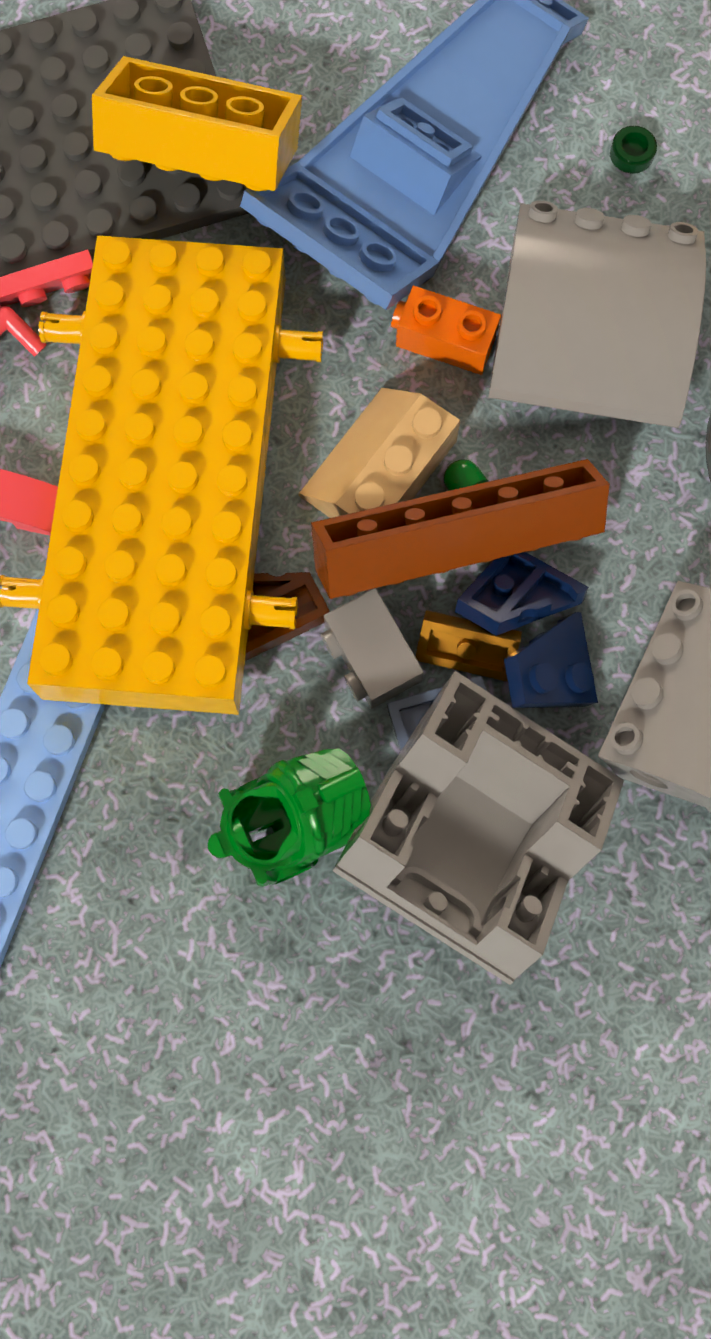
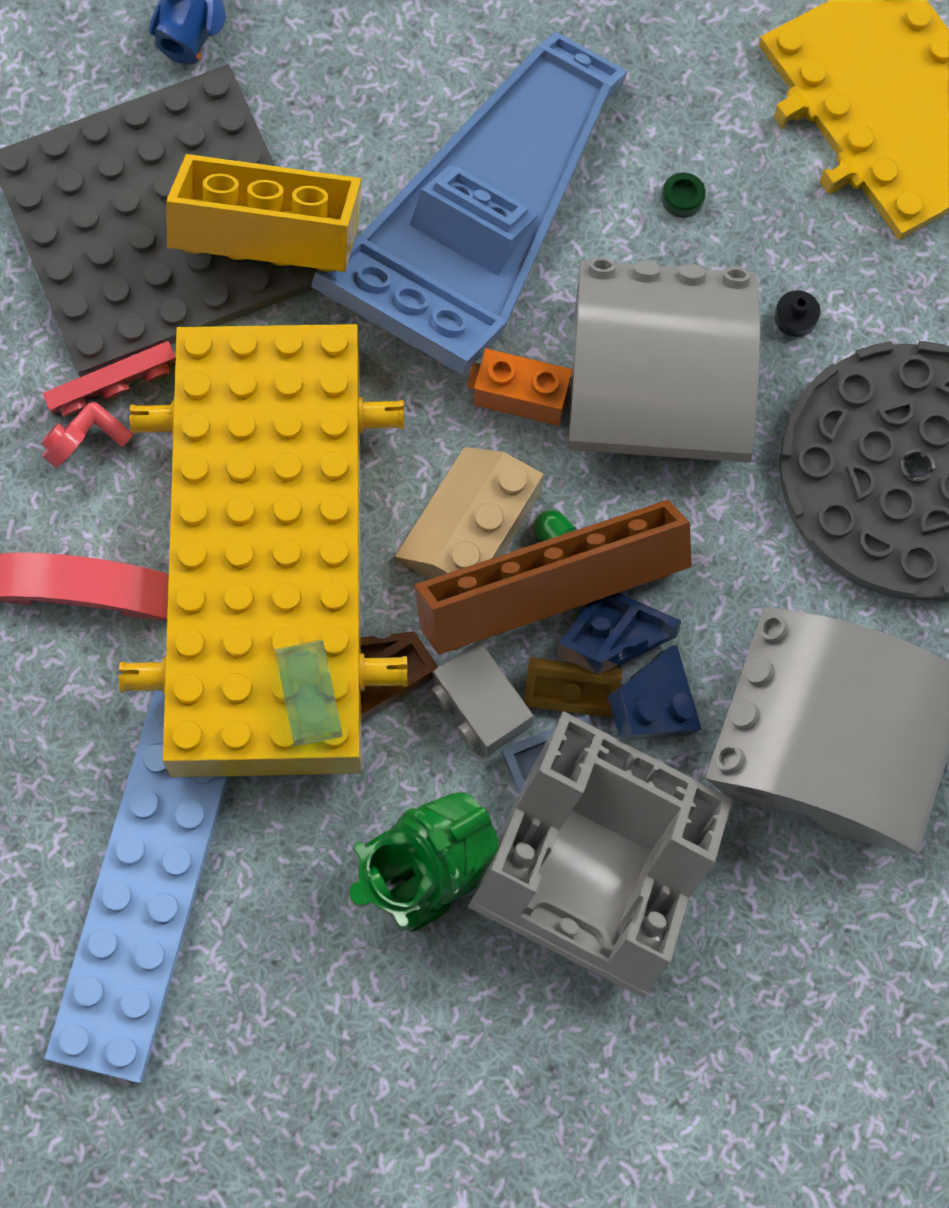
camera: 10 degrees left, 5 degrees down
(186, 627) = (308, 693): none -> clear light blue plate

